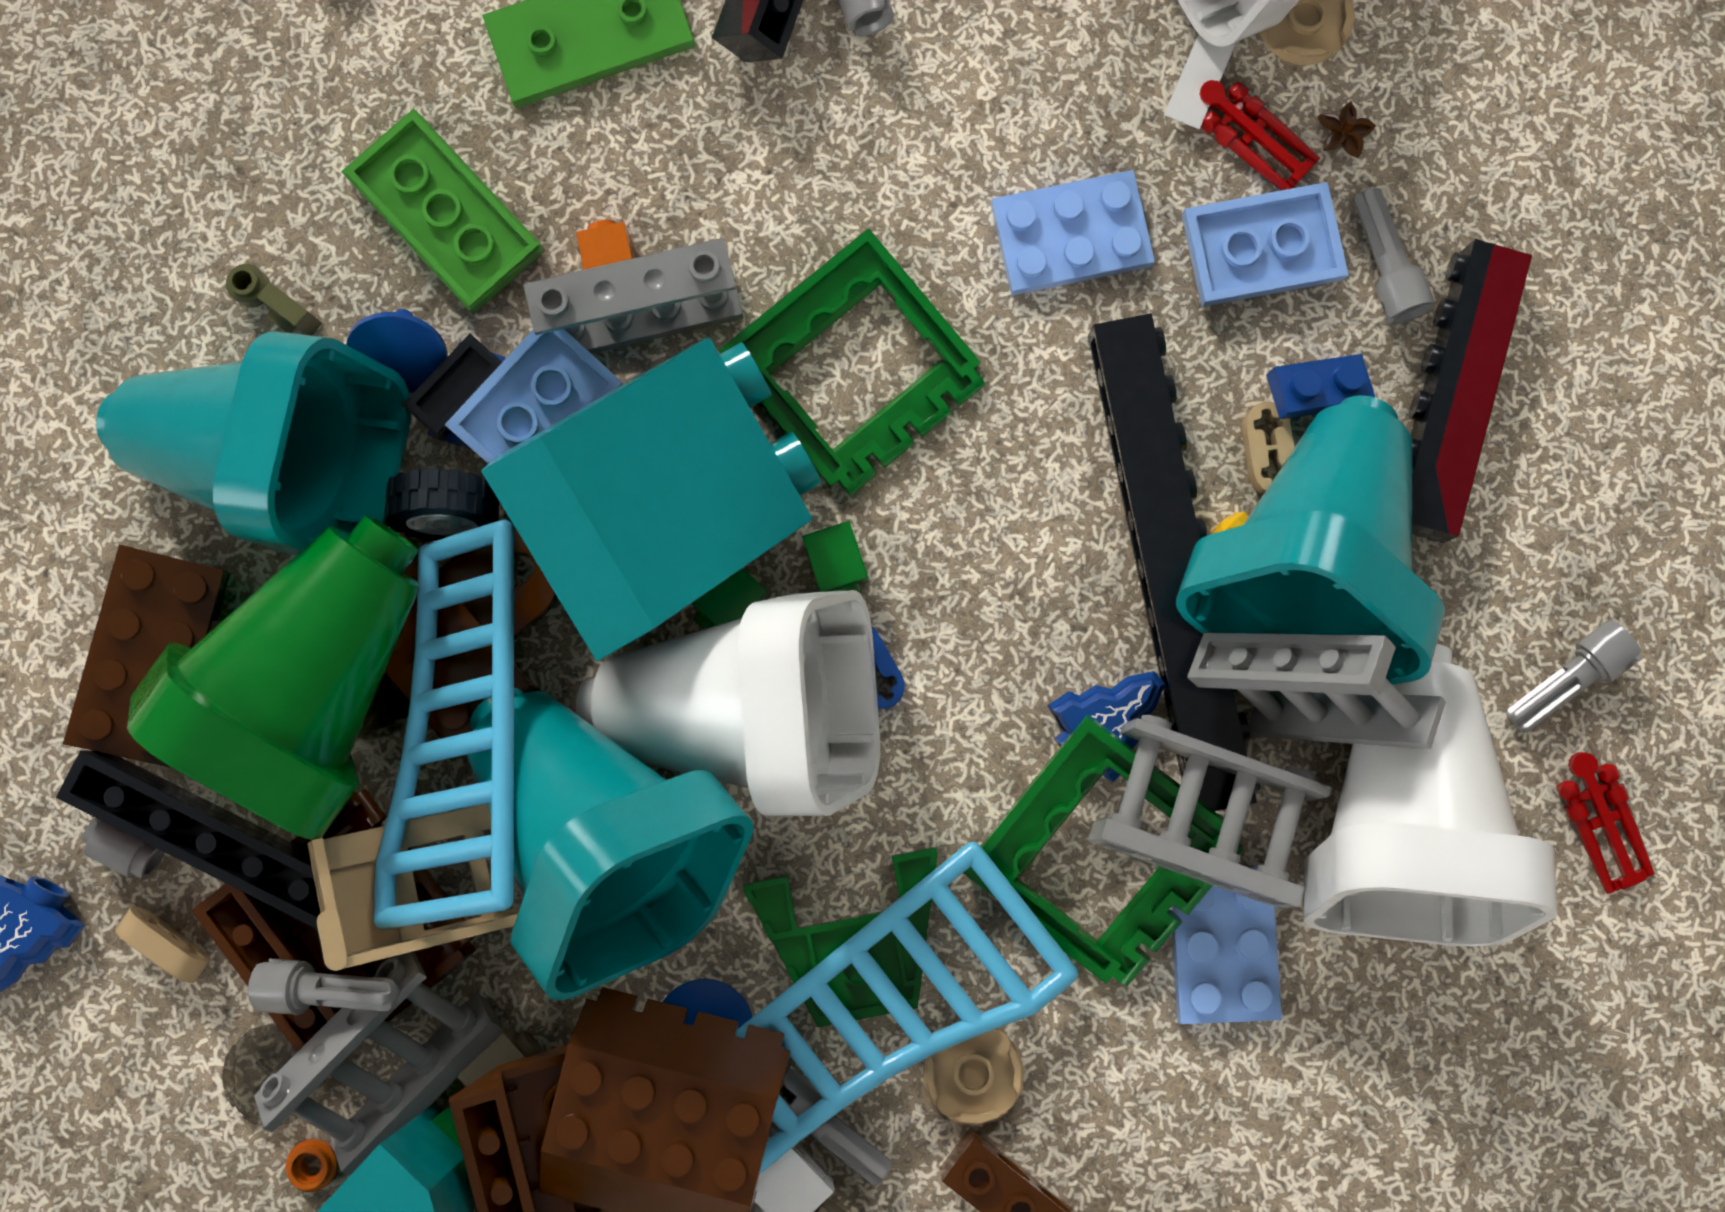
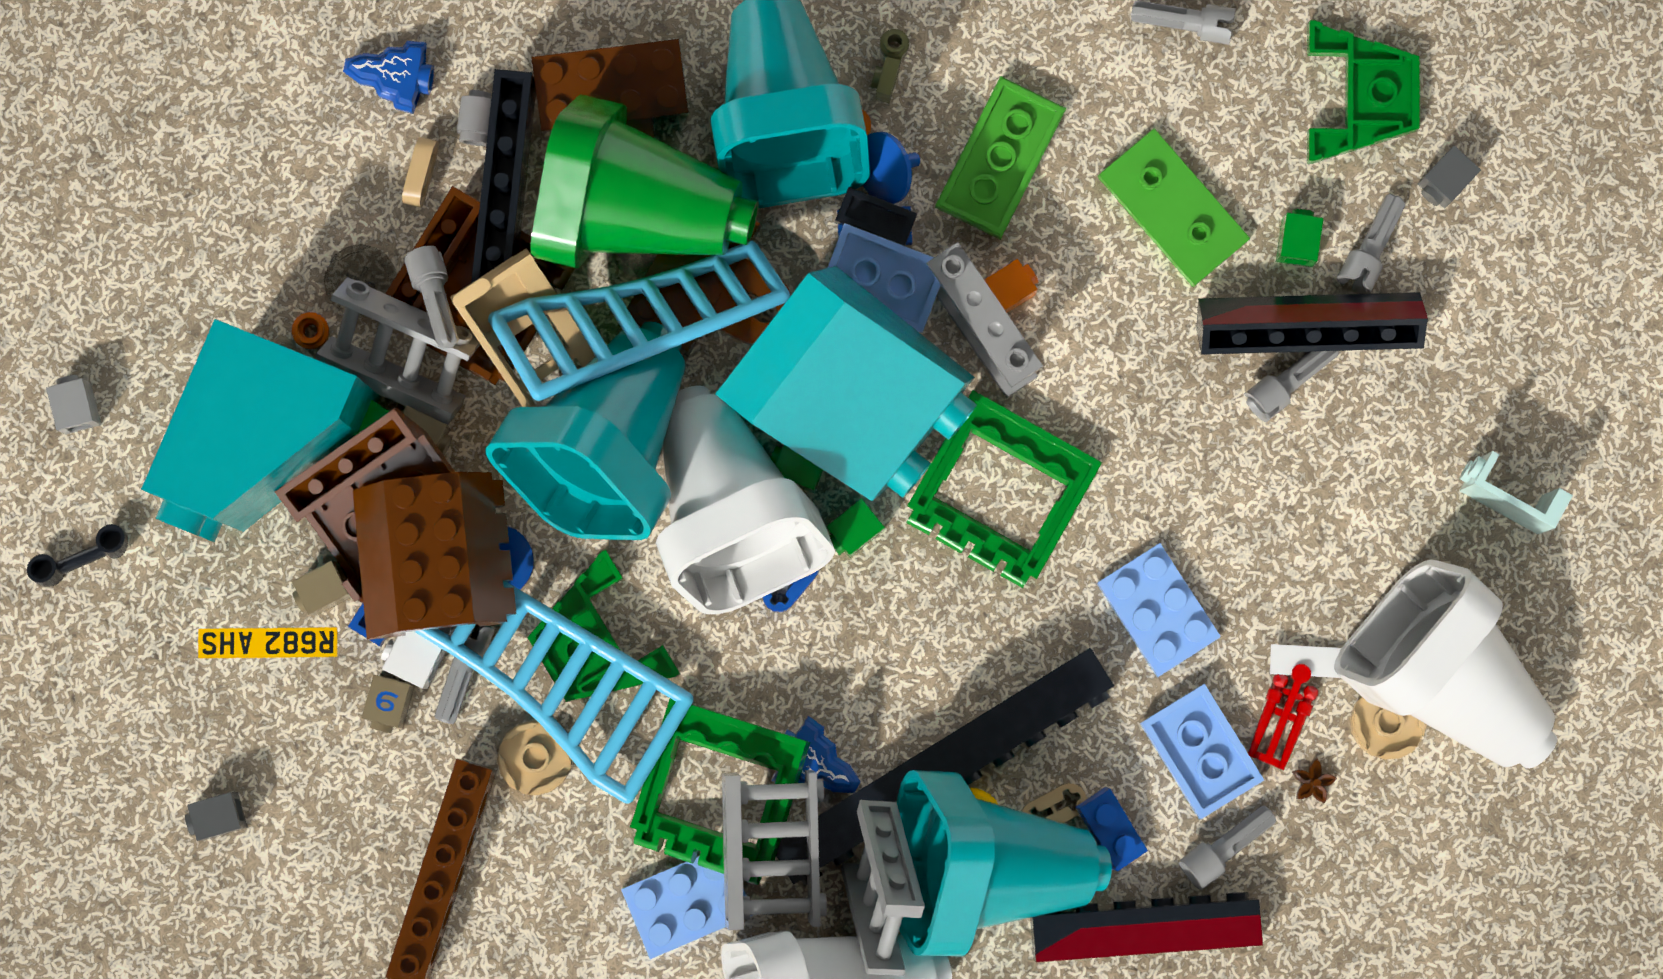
camera: 70 degrees right, 0 degrees up
(438, 503) = (788, 242): black wheel -> none

